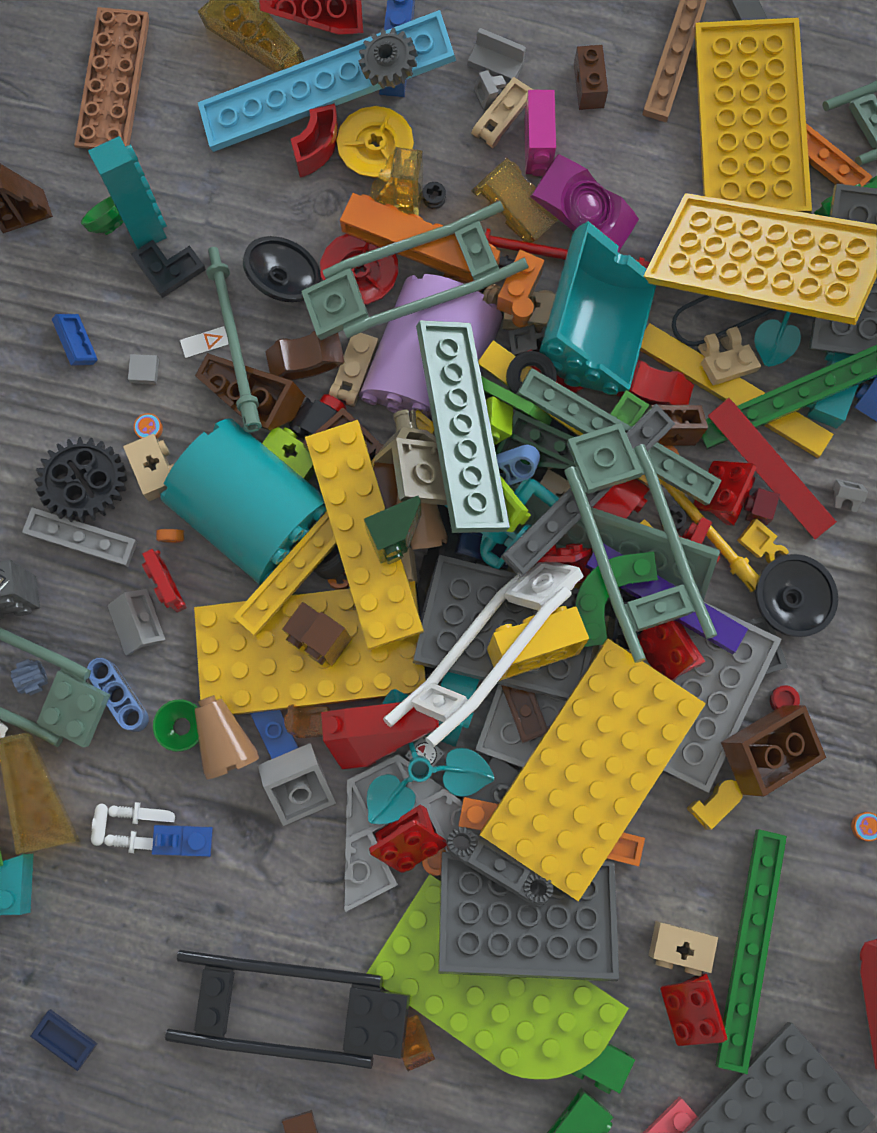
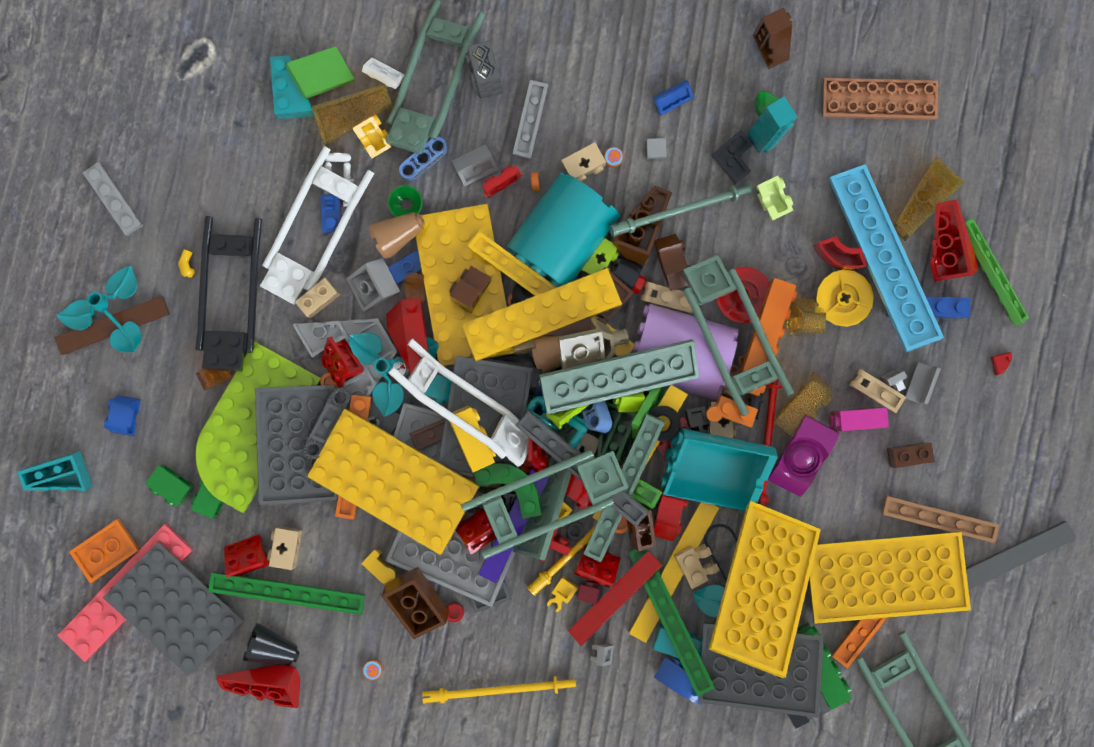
camera: 95 degrees right, 10 degrees up
(29, 677) = (430, 98): sand blue gear -> none
(58, 492) = (559, 102): black gear -> none
(63, 1040) = (201, 151): dark blue tile -> none
(74, 768) = (372, 136): none -> yellow cylinder
(204, 342) = (681, 189): white sticker -> none
(232, 219) = (773, 198): none -> yellowish green cylinder
(237, 1080) = (184, 266): none -> yellow arm
(271, 917) = (284, 275): none -> white plate
(280, 268) = (745, 239): black dish -> none
(308, 868) = (317, 298): none -> tan brick
(388, 58) = (893, 309): dark grey gear -> none
(394, 529) = (537, 334): dark green slope -> none
(439, 200) = (811, 341): black bush -> none
(809, 586) = (524, 630): black dish -> none
(834, 983) = (269, 647): none -> black cone

